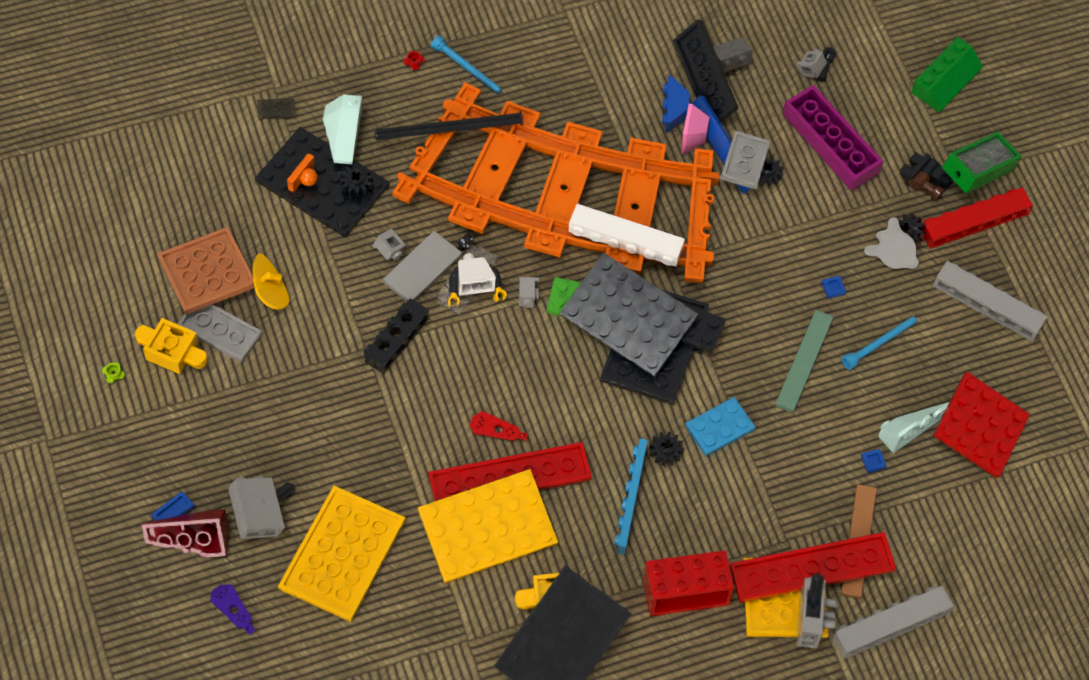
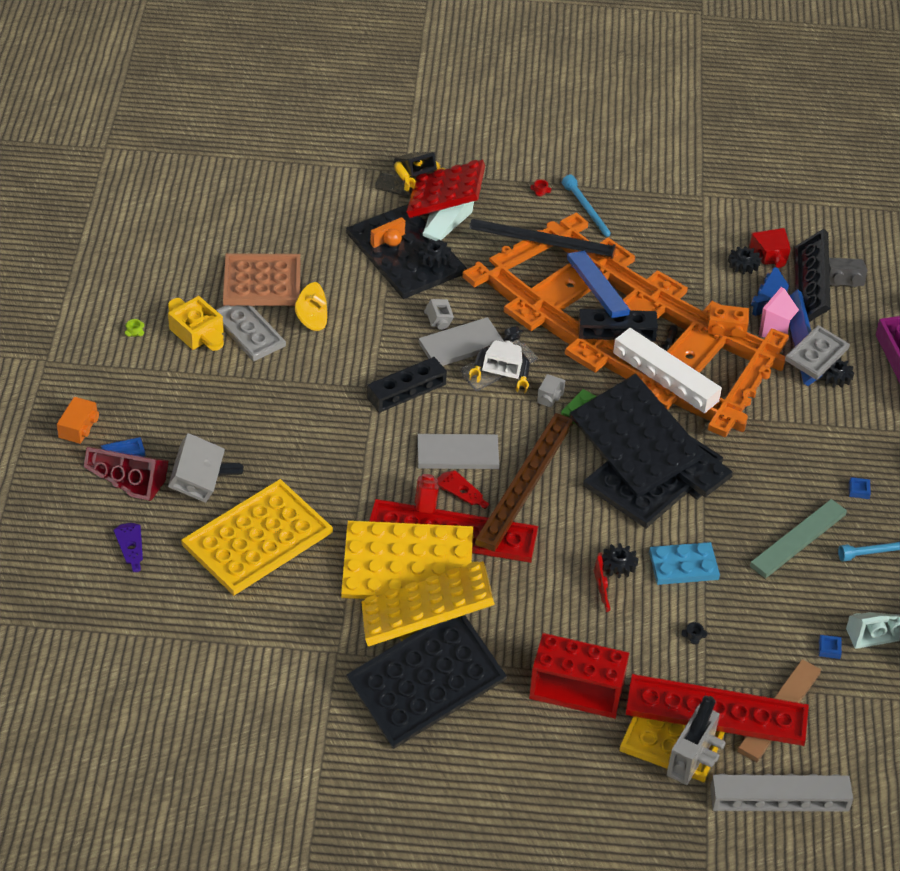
camera: 25 degrees right, 15 degrees down
(117, 498) = (77, 420): none -> orange brick
(287, 81) = (413, 165): none -> black torso
(333, 101) = (446, 188): none -> red plate
(473, 451) = (426, 494): none -> red brick
(474, 388) = (458, 451): none -> light grey tile
(526, 163) = (598, 284): none -> blue tile
(532, 569) = (426, 603): none -> yellow plate
(551, 401) = (524, 482): none -> reddish brown plate
(556, 209) = (600, 325): none -> black brick
(608, 199) = (673, 330): none -> black piece
(629, 503) = (559, 592): dark azure plate -> none
(635, 75) = (744, 260): none -> black gear
(653, 50) = (772, 246): none -> red torso
(656, 158) = (728, 320): none -> orange brick
(661, 476) = (601, 581): none -> red piece
(758, 489) = (698, 631): none -> black plate

